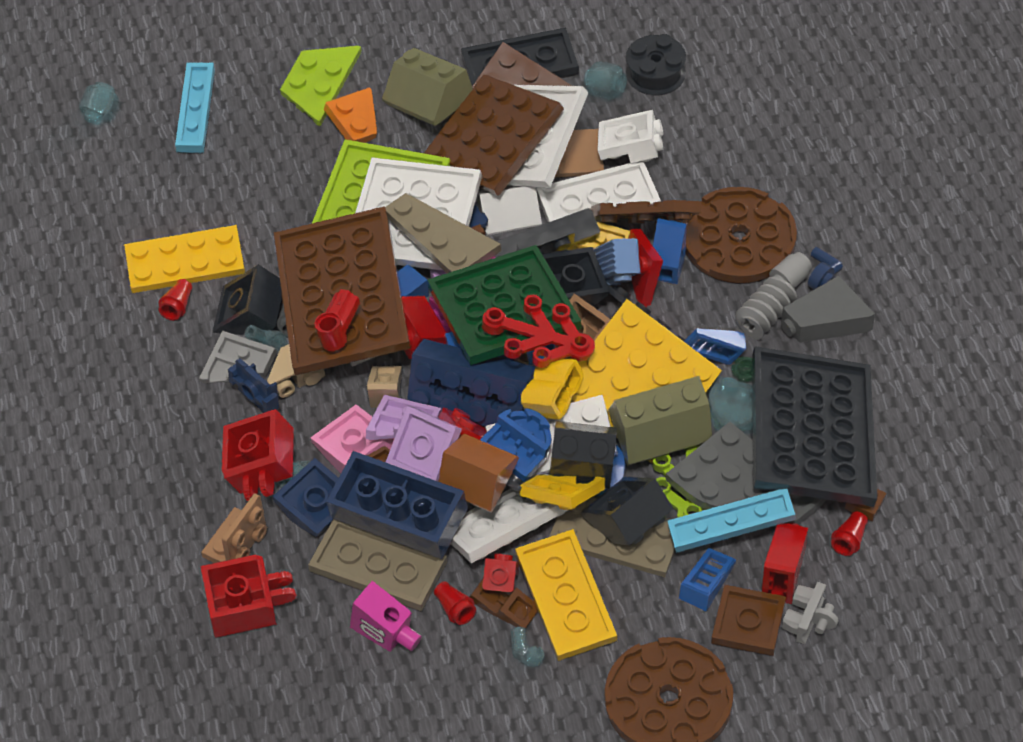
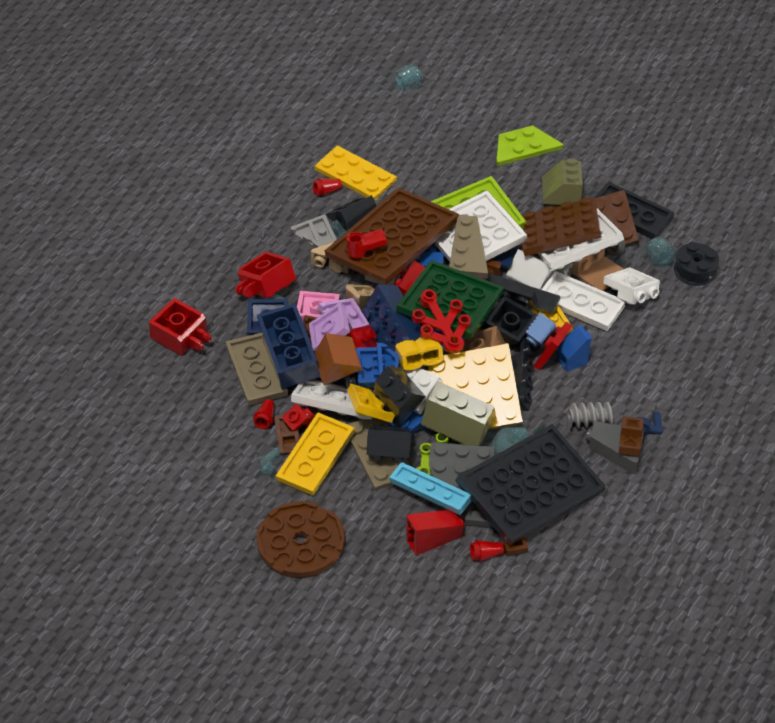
camera: 45 degrees right, 5 degrees down
(195, 107) = (449, 112): medium azure plate -> none
(237, 533) = (214, 301): medium nougat bracket -> none
(254, 386) = (302, 255): dark blue piece -> none
(354, 115) = (516, 173): orange wing -> none
(383, 619) = (221, 400): dark pink torso -> none
(643, 212) = (595, 329): reddish brown plate -> none
(701, 595) = (391, 512): blue slope -> none
(717, 345) = (537, 408): blue slope -> none
(719, 254) = (613, 359): reddish brown plate -> none
(748, 620) = (383, 542): reddish brown plate -> none
(792, 269) = (626, 408): light grey brick -> none
(811, 601) = (415, 566): light grey hips -> none
(837, 291) = (631, 436): none -> reddish brown slope

